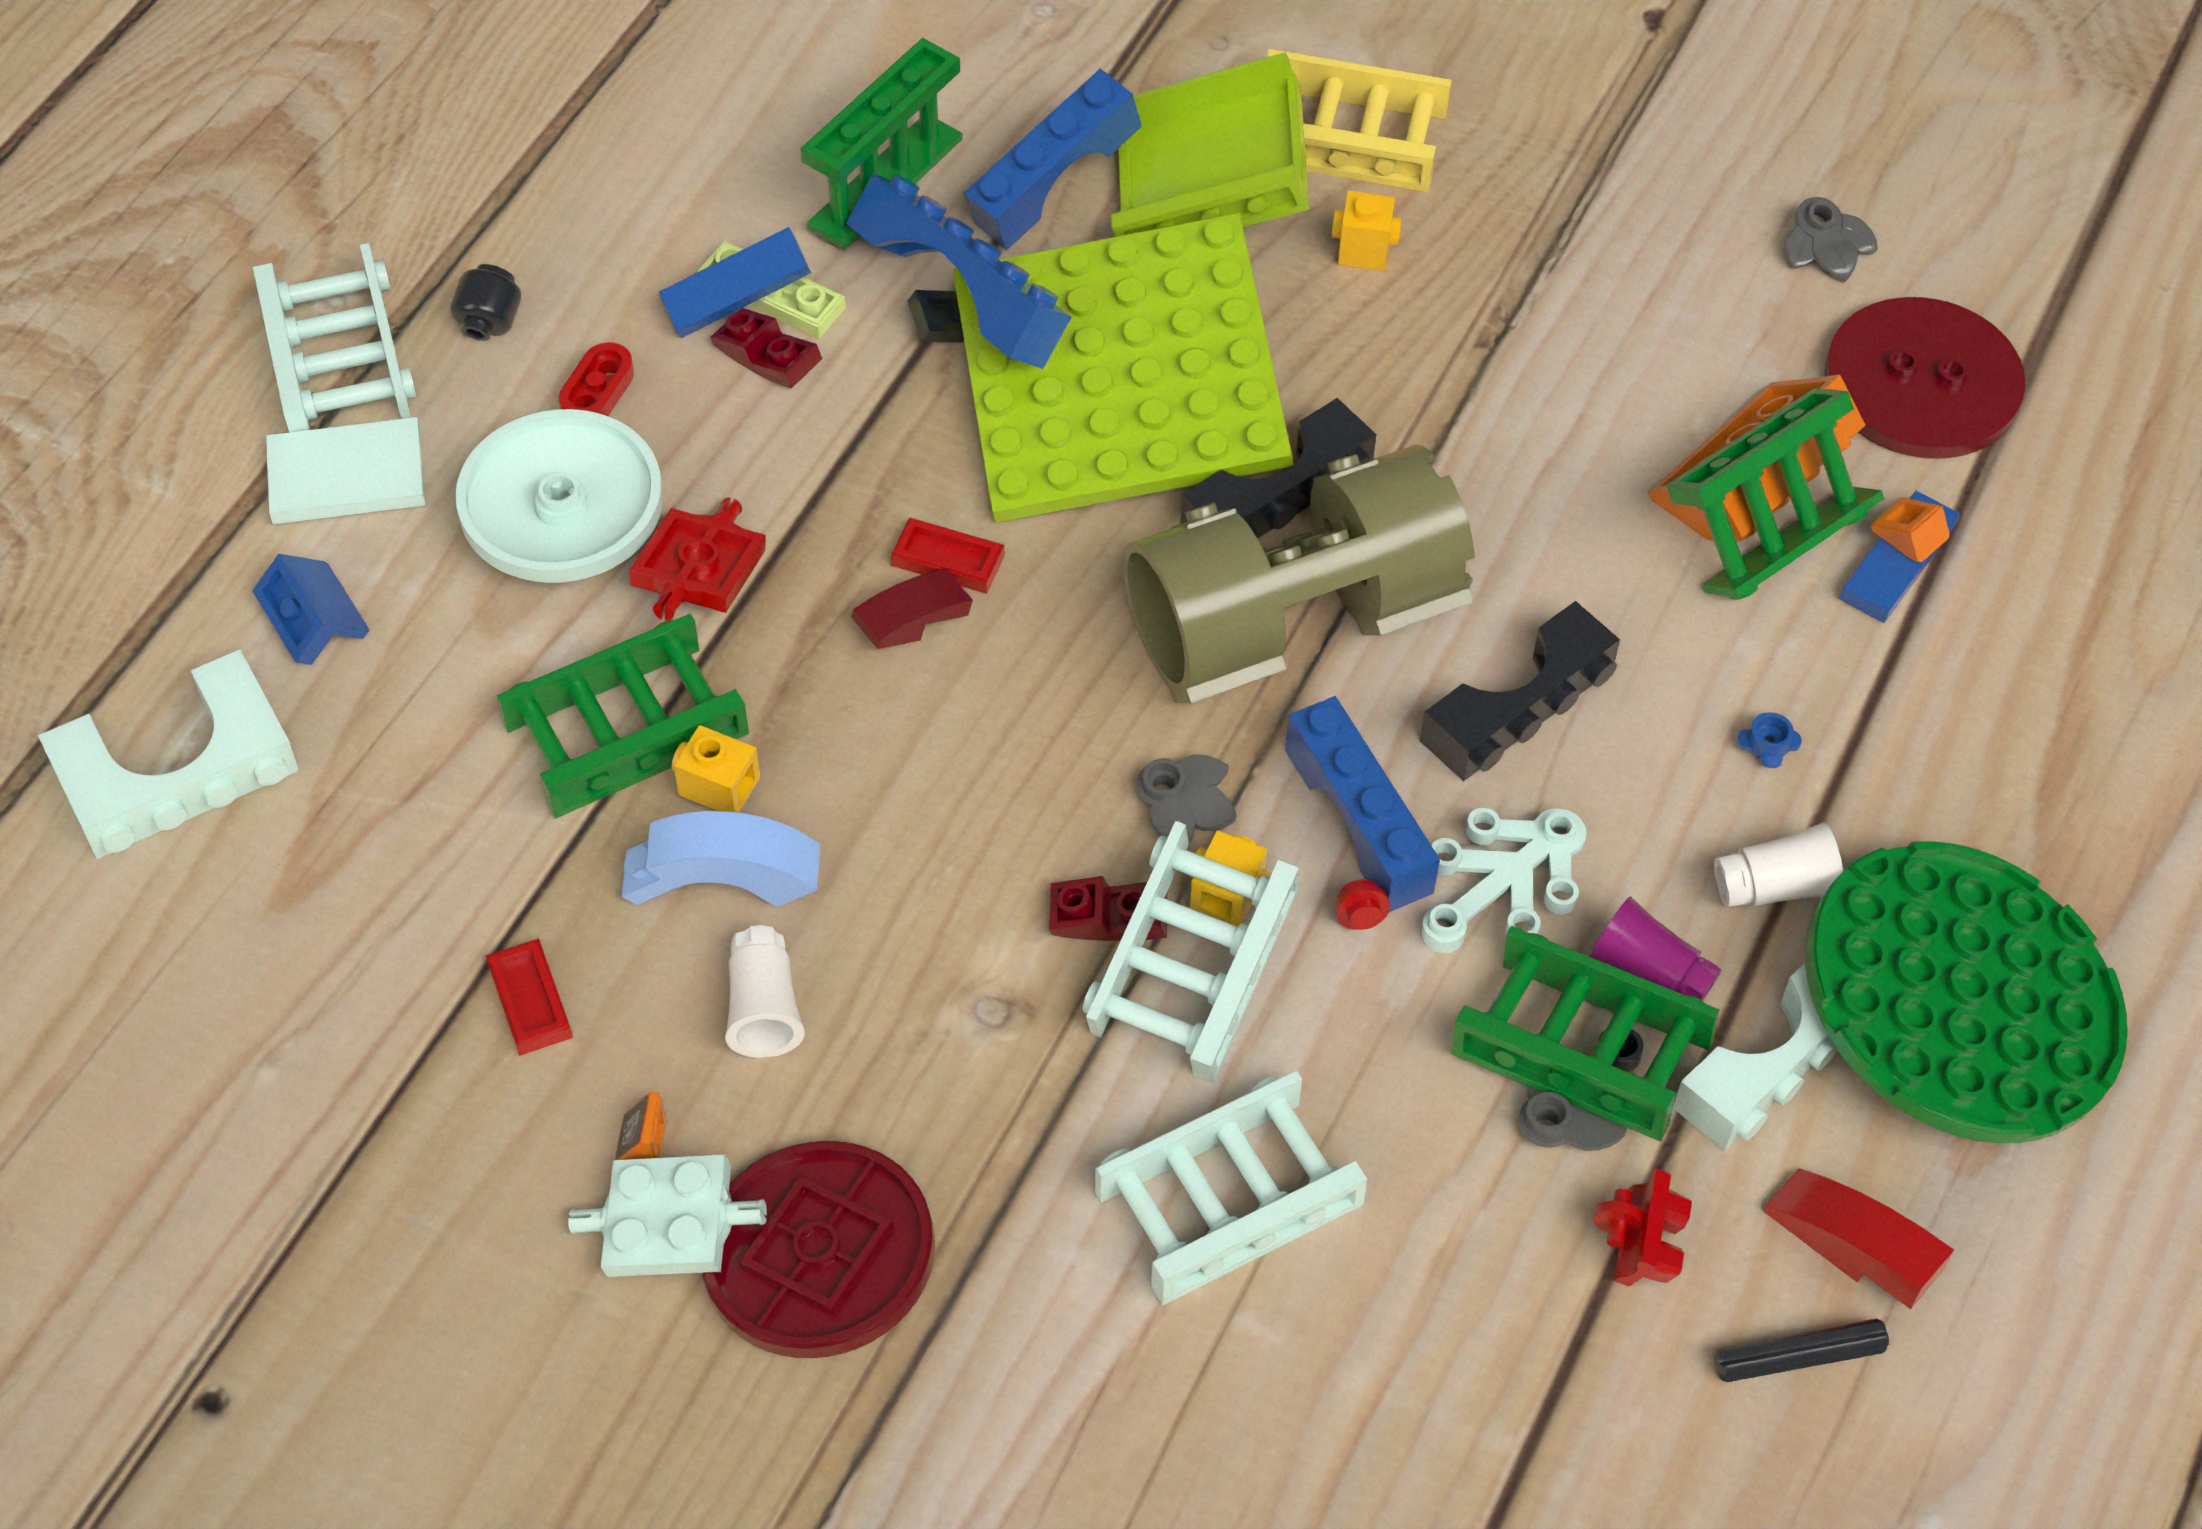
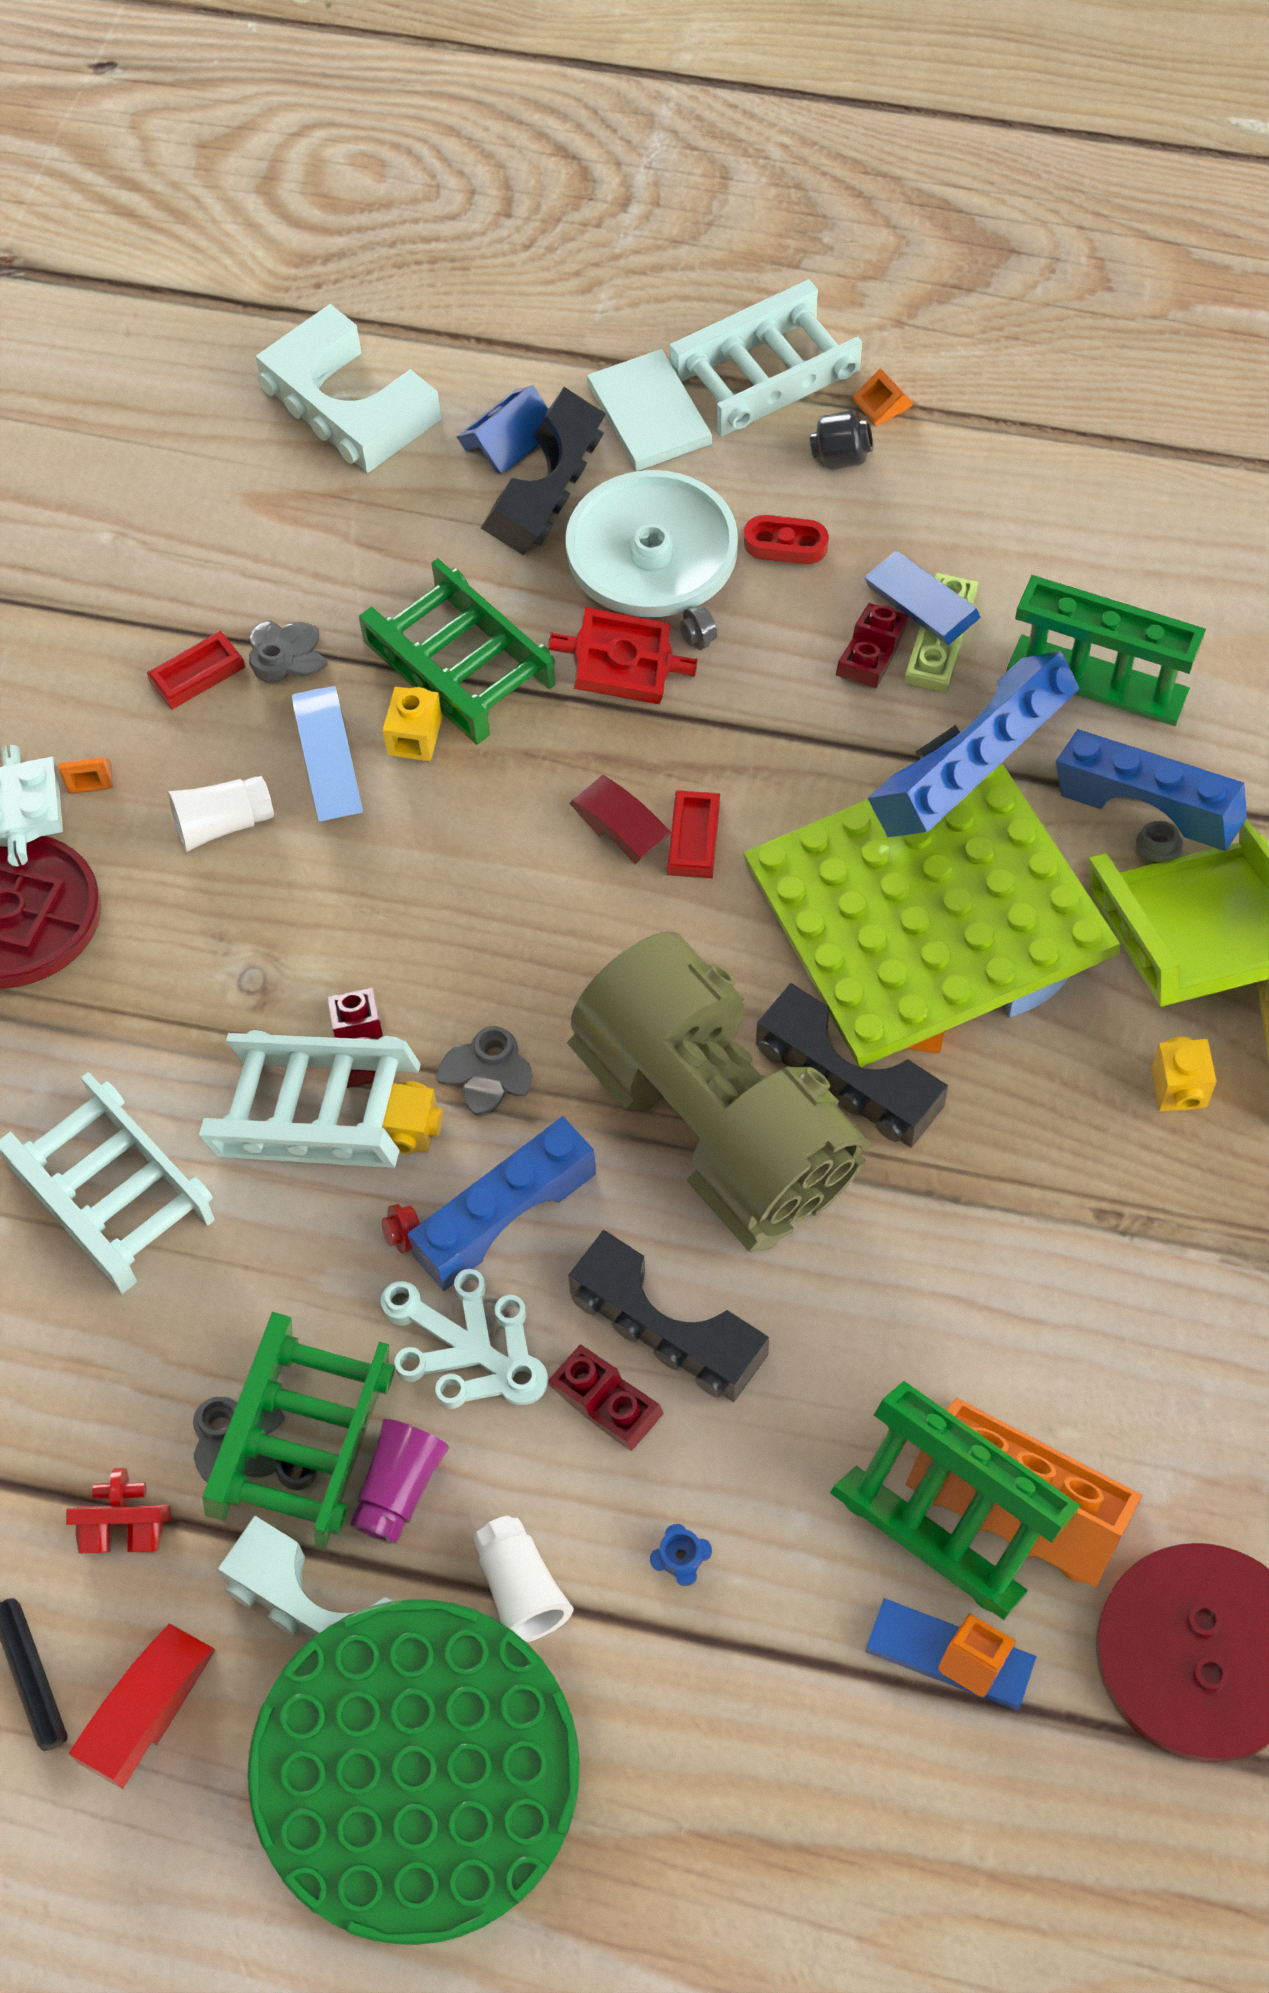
camera: 80 degrees right, 5 degrees up
(364, 544) = (525, 505): none -> black arch
(433, 261) = (881, 398): none -> orange slope
(542, 895) = (284, 650): none -> dark grey plate
(685, 485) = (698, 627): none -> dark grey plate
(1098, 183) = (1159, 842): none -> dark grey plate
(1594, 768) = (605, 1398): none -> dark red slope

